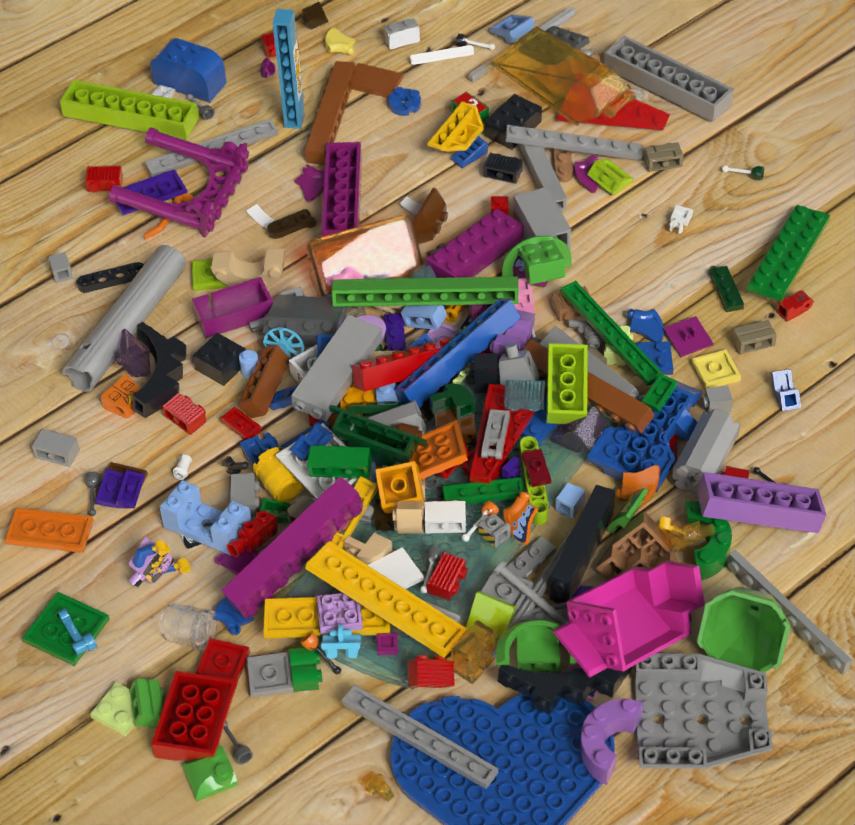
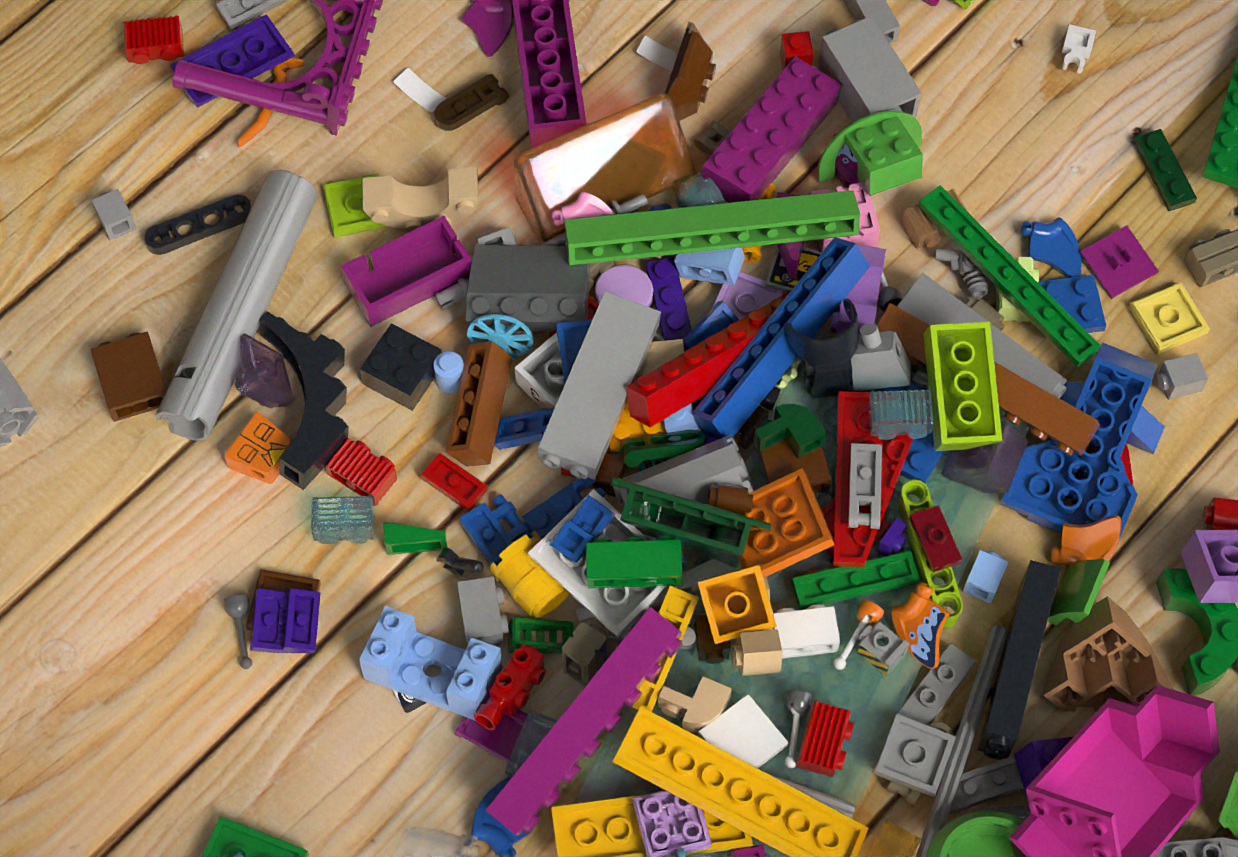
camera: 10 degrees left, 15 degrees up
(49, 530) = (185, 703): orange plate -> none
(51, 351) = (129, 375): none -> reddish brown brick
(56, 448) = (168, 552): light grey brick -> none
(152, 561) = (361, 753): torso -> none
(167, 438) = (343, 519): none -> clear light blue brick
(181, 471) = (373, 577): white pin -> none
(208, 452) = (412, 539): none -> green slope
(483, 354) = (829, 351): none -> black piece
(491, 612) = (899, 799): lime tile -> none
(501, 569) = (909, 724): light grey bar -> none
(660, 392) = (1101, 384): green plate -> none
(685, 536) = (1174, 631): clear yellow torso -> none
(705, 449) = (1180, 476): light grey brick -> none

